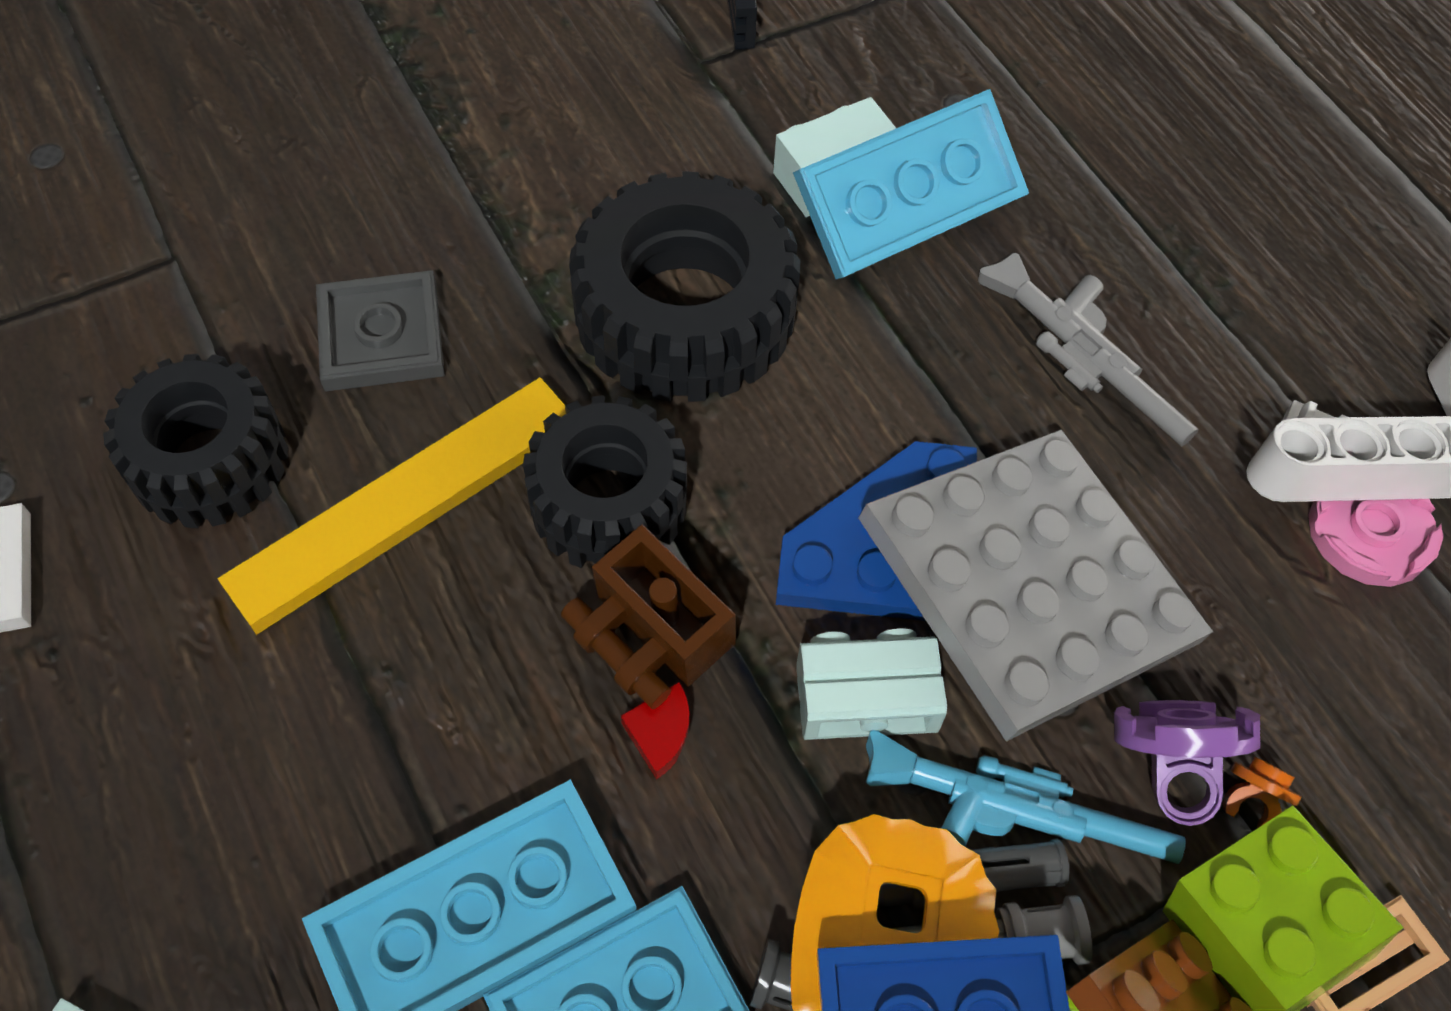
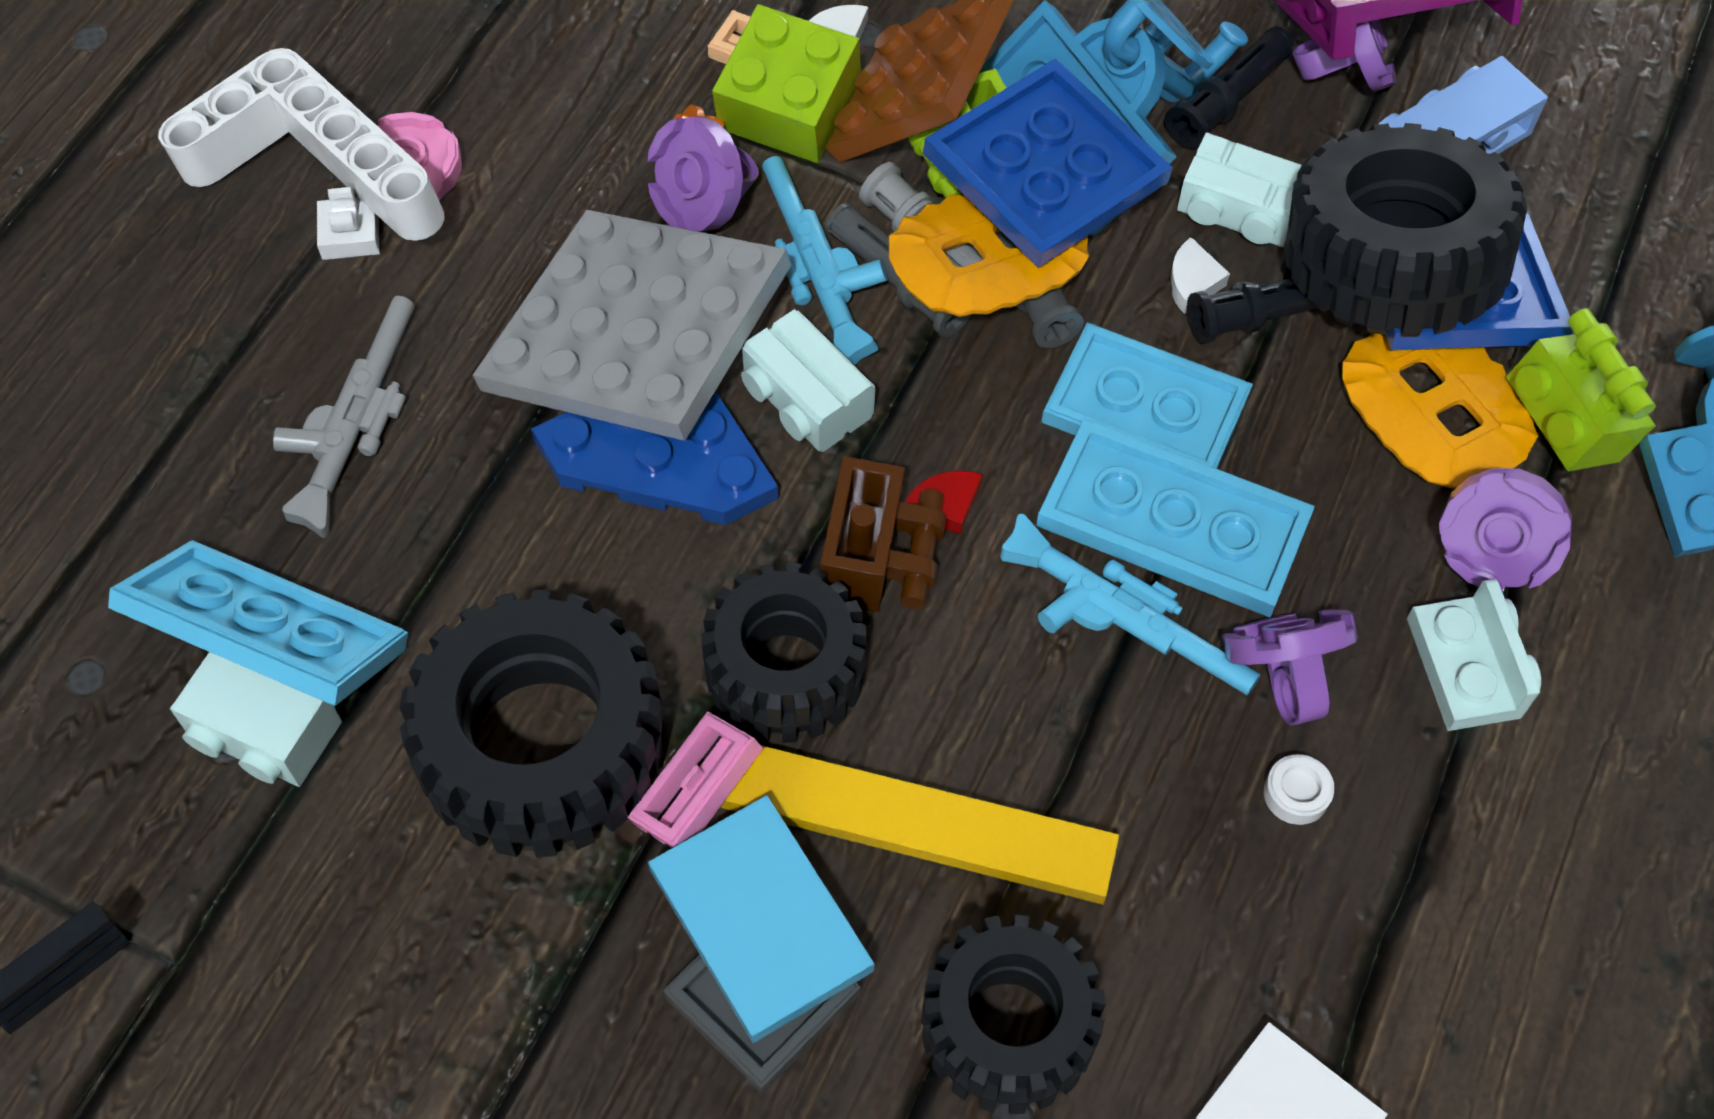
camera: 125 degrees left, 0 degrees up
(151, 809) = (1298, 789): none -> white tile
(247, 885) = (1294, 658): none -> medium lavender tile
(418, 342) = (761, 918): none -> medium azure tile
(425, 808) = (1132, 607): none -> medium azure piece
(537, 371) = (703, 786): none -> bright pink tile

